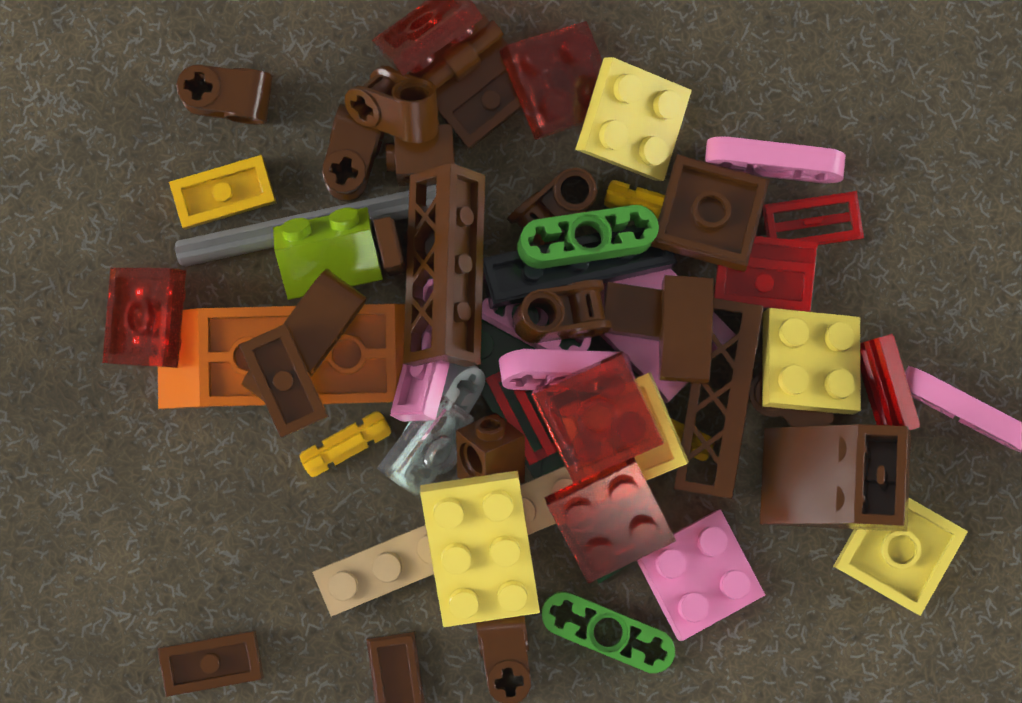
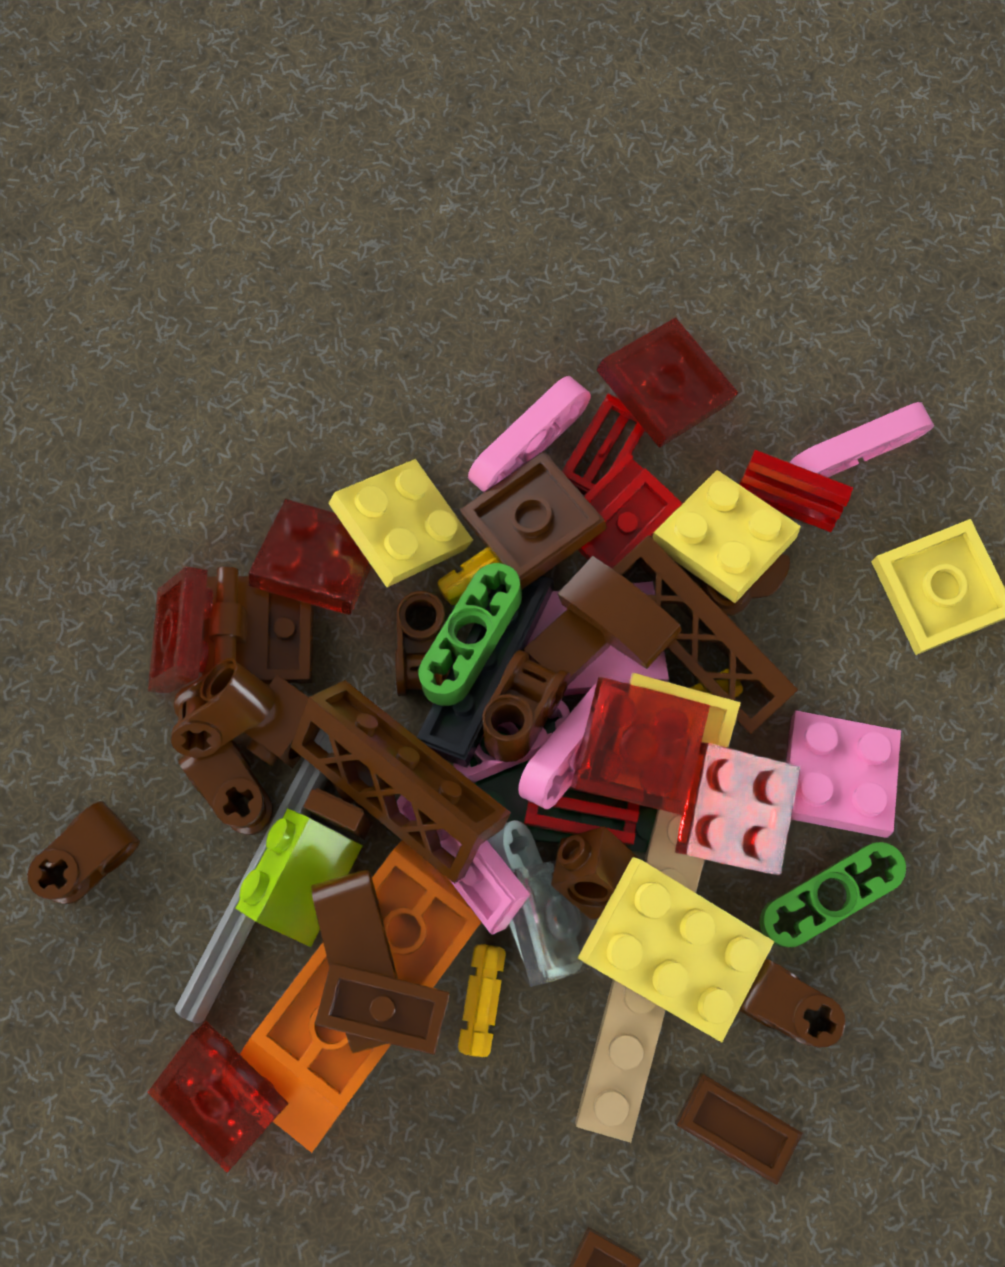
camera: 55 degrees left, 10 degrees down
(222, 192) = (166, 930): yellow plate -> none
(836, 477) = (846, 586): reddish brown slope -> none
(898, 228) = (667, 382): none -> clear red plate

